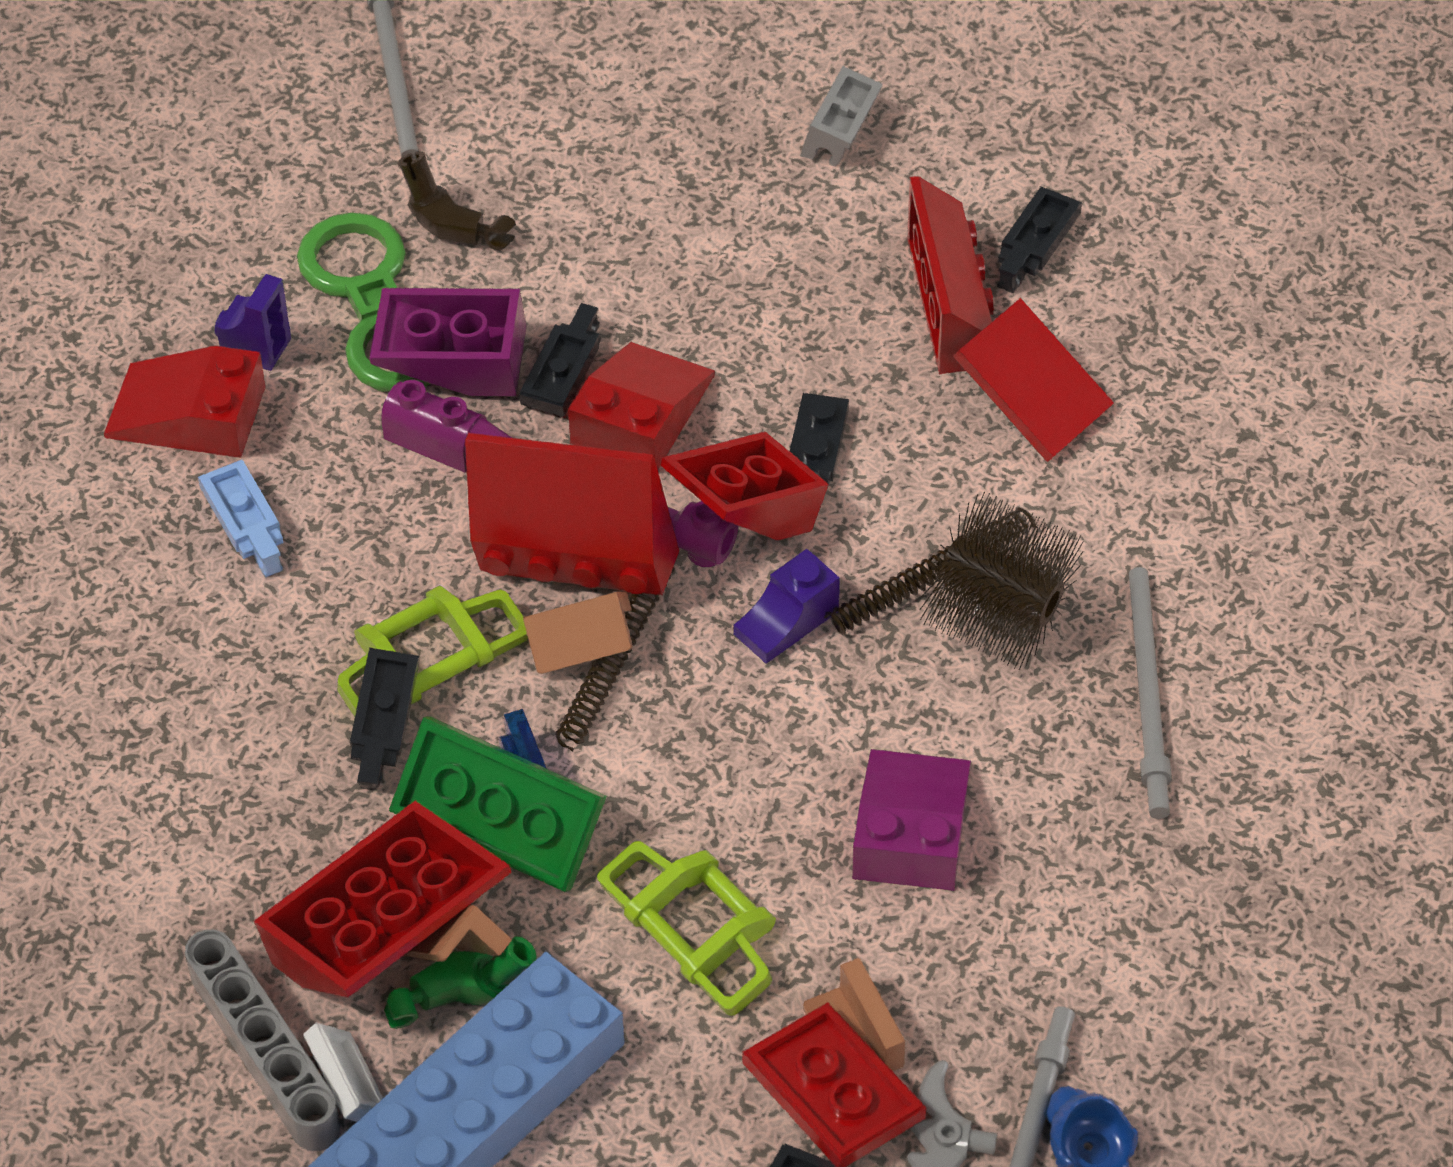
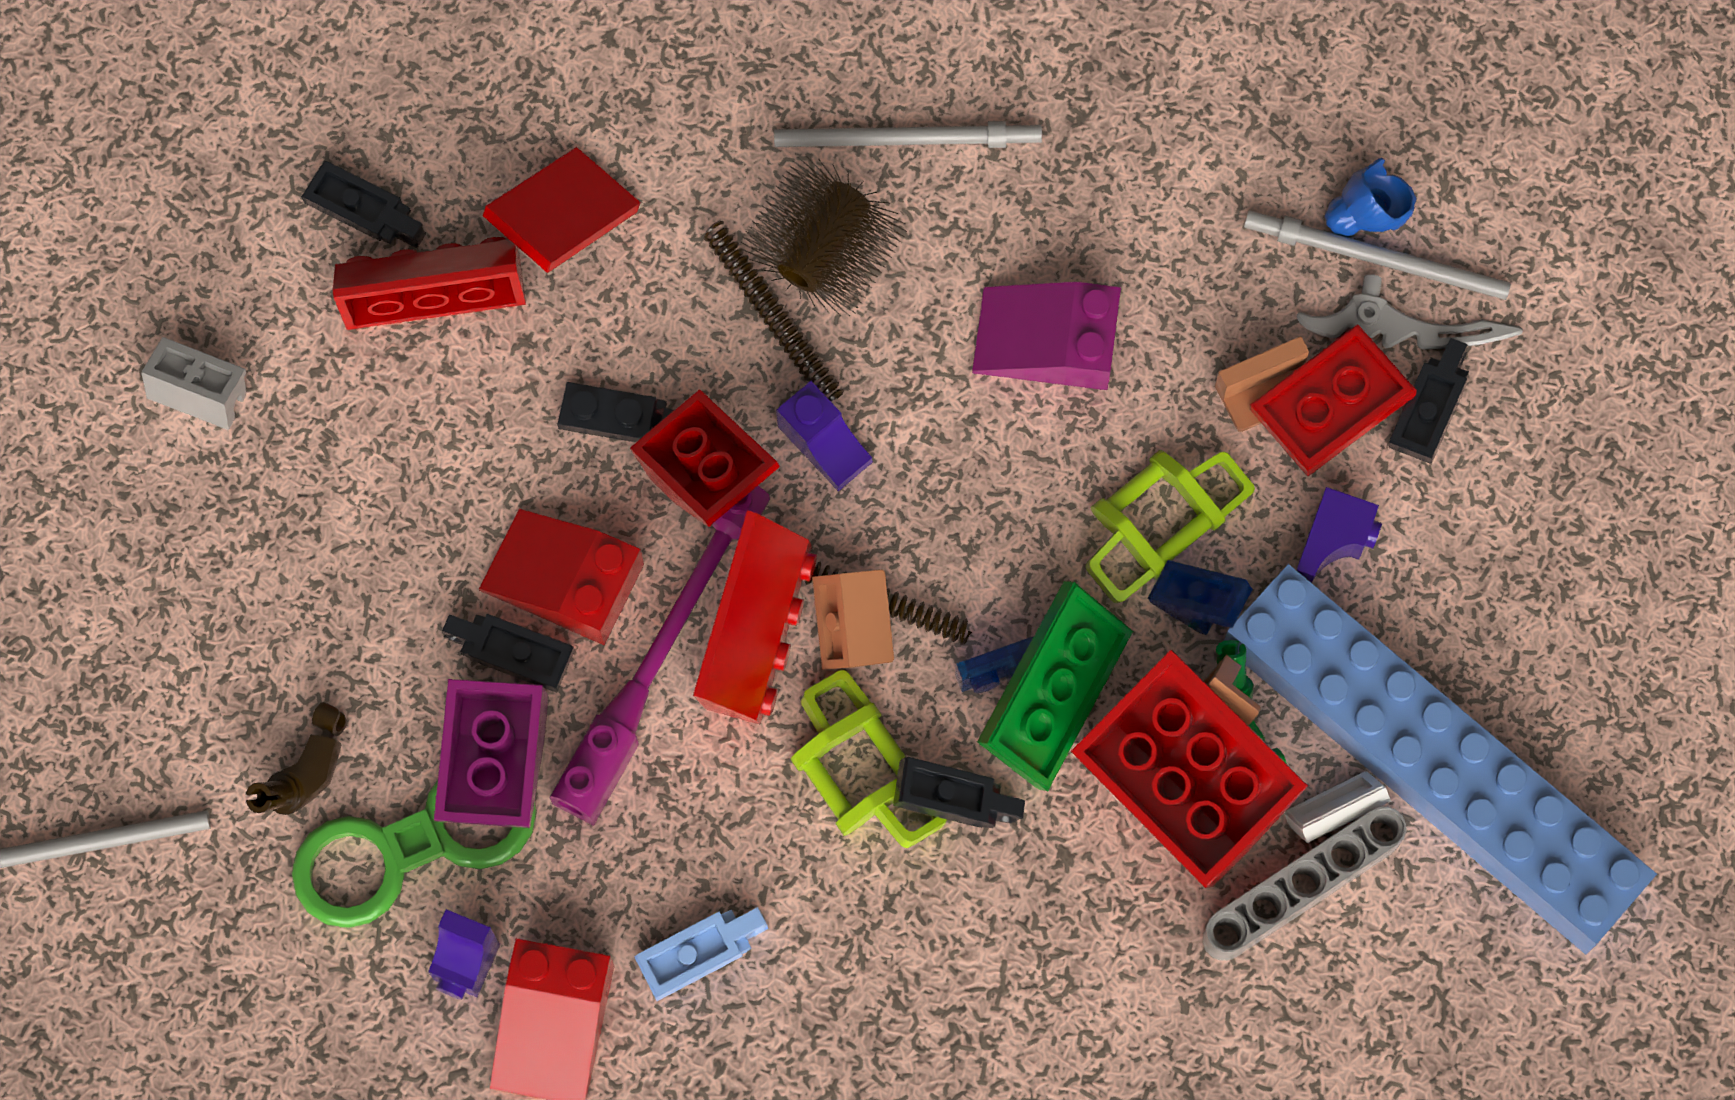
camera: 90 degrees left, 20 degrees up
(595, 940) = (1199, 596): none -> clear blue slope
(673, 1080) = (1339, 531): none -> dark purple arch

